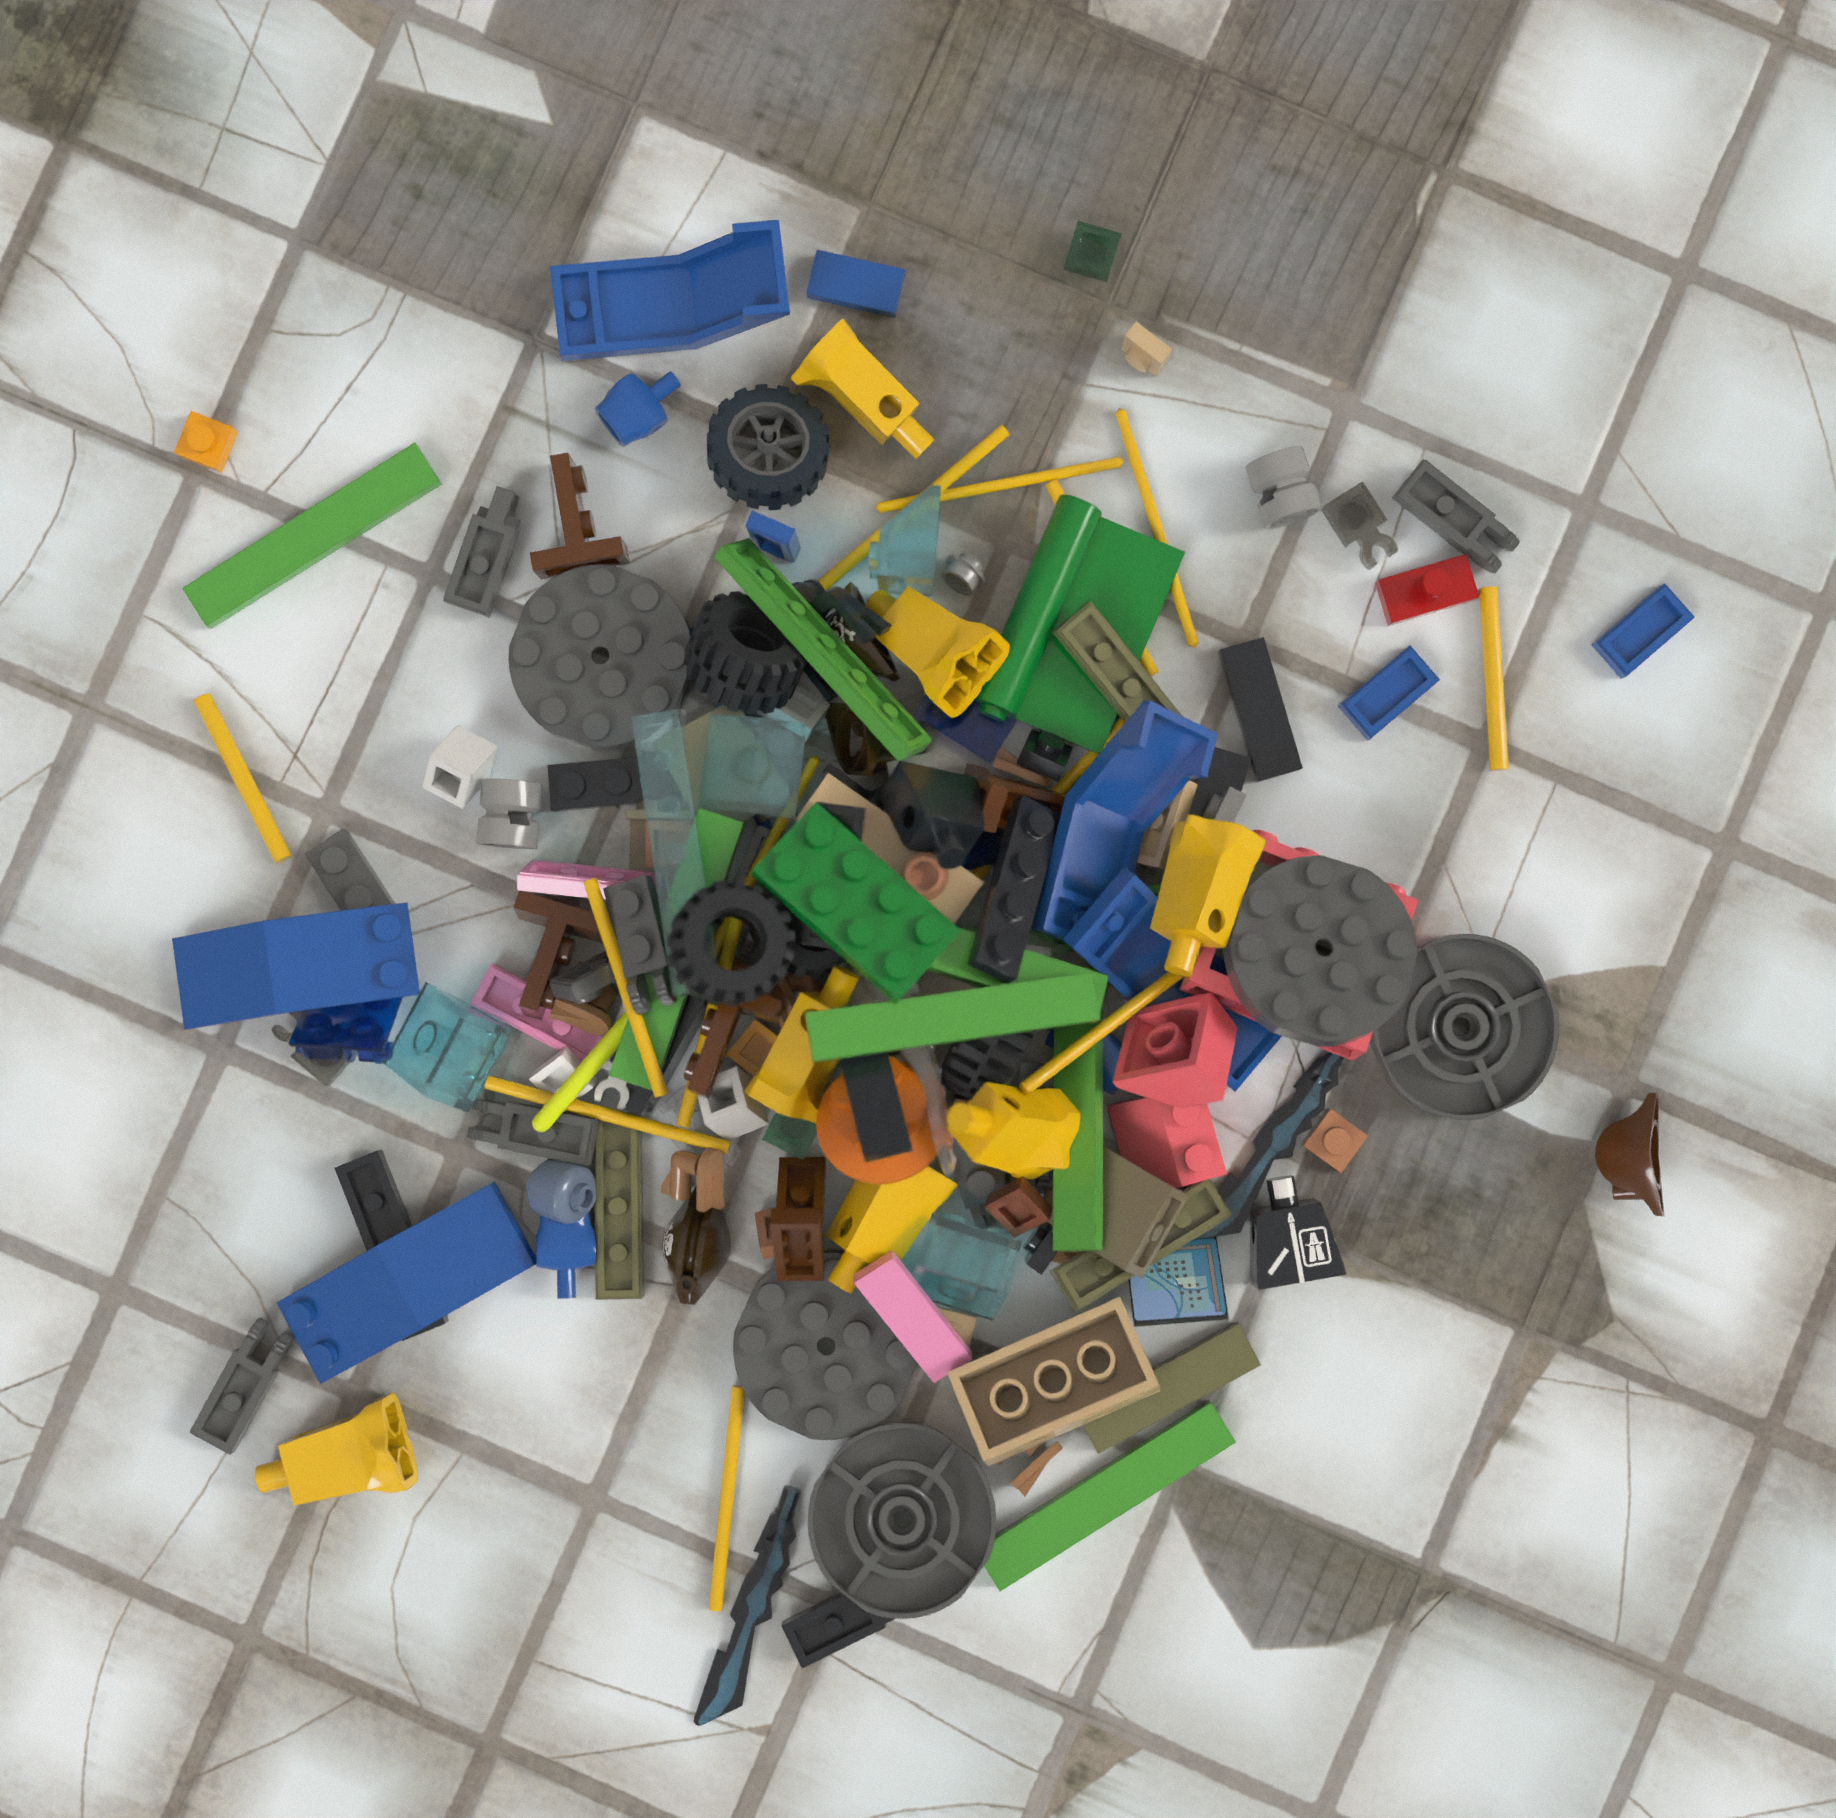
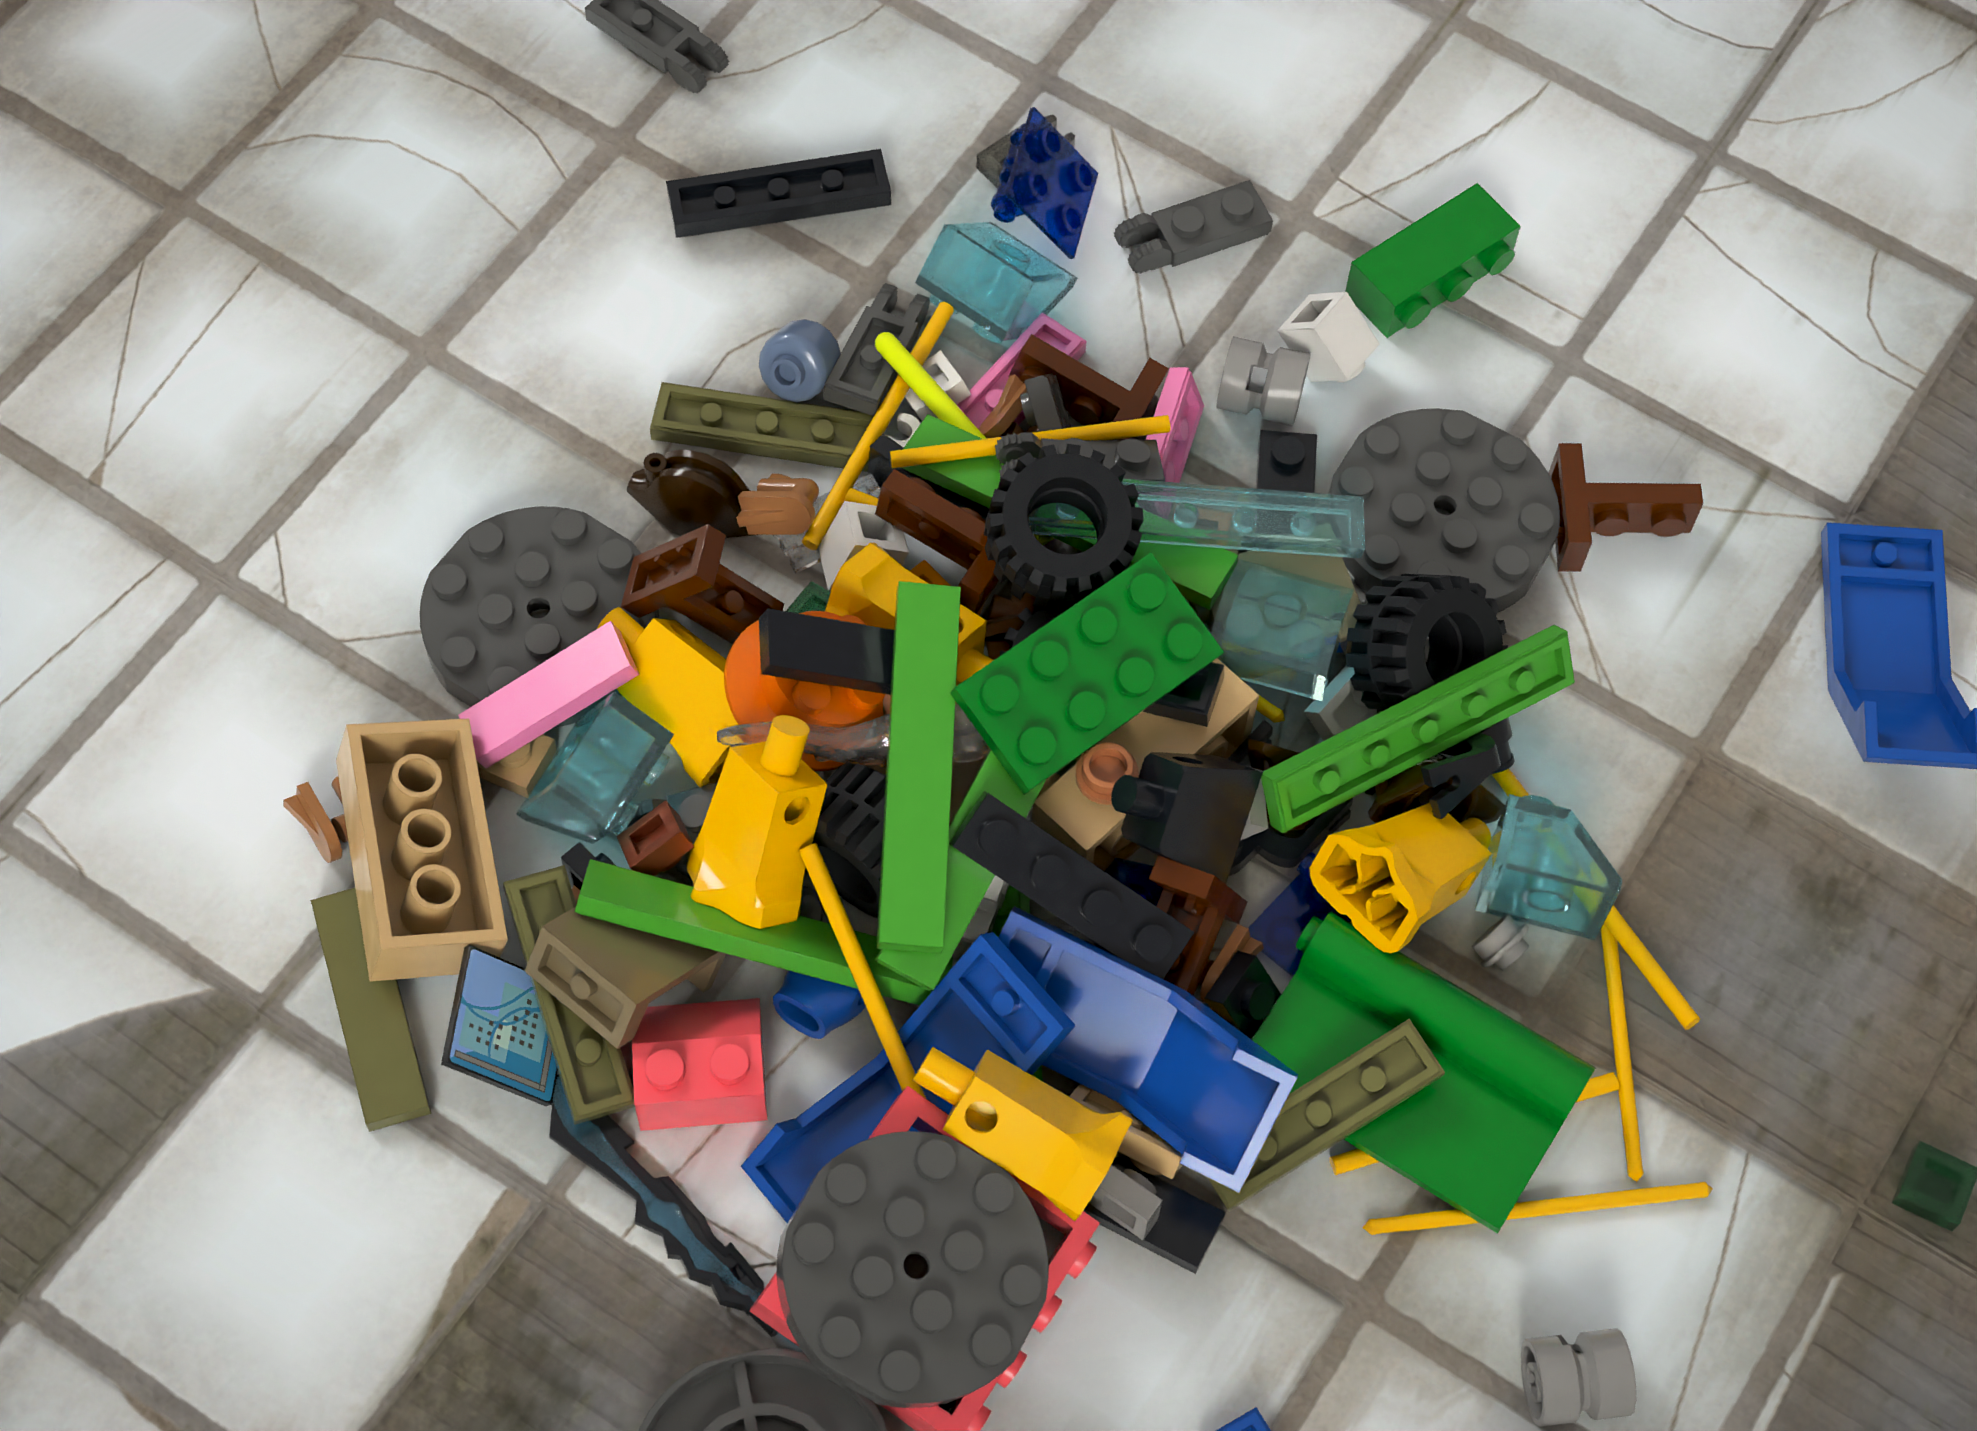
camera: 90 degrees right, 25 degrees down
(206, 442) = (1747, 164): light orange plate -> none
(242, 778) = (1347, 140): yellow bar -> none
(295, 965) = (1122, 153): blue windscreen -> none
(312, 536) = (1628, 251): bright green tile -> none
(346, 1456) = (549, 117): yellow piece -> none
(362, 690) = (1432, 261): none -> green brick
(407, 1282) = (735, 203): blue windscreen -> none
(485, 555) = (1586, 412): dark grey hinge -> none
(565, 1249) = (727, 358): blue piece -> none
(634, 409) = (1753, 596): blue piece -> none
(726, 1498) = (379, 480): yellow axle -> none
(753, 1606) = (245, 486): black sword -> none
(773, 537) = (1572, 709): blue tile -> none
(782, 410) = (1731, 708): black wheel -> none
(829, 1628) = (200, 577): black hinge -> none
(855, 283) = (1904, 884): blue tile -> none
(863, 389) = (1763, 851): yellow piece -> none
(893, 1567) = (290, 598): dark grey piece -> none
(1107, 1494) = (256, 908): bright green tile -> none
(1145, 350) = (1789, 1226): tan plate -> none
(1178, 1052) = (812, 1067): coral slope -> none
(1260, 709) = (1264, 1297): black tile -> none
(1291, 1239) = (523, 1192): black torso -> none
(1334, 1140) = (643, 1284): nougat plate -> none

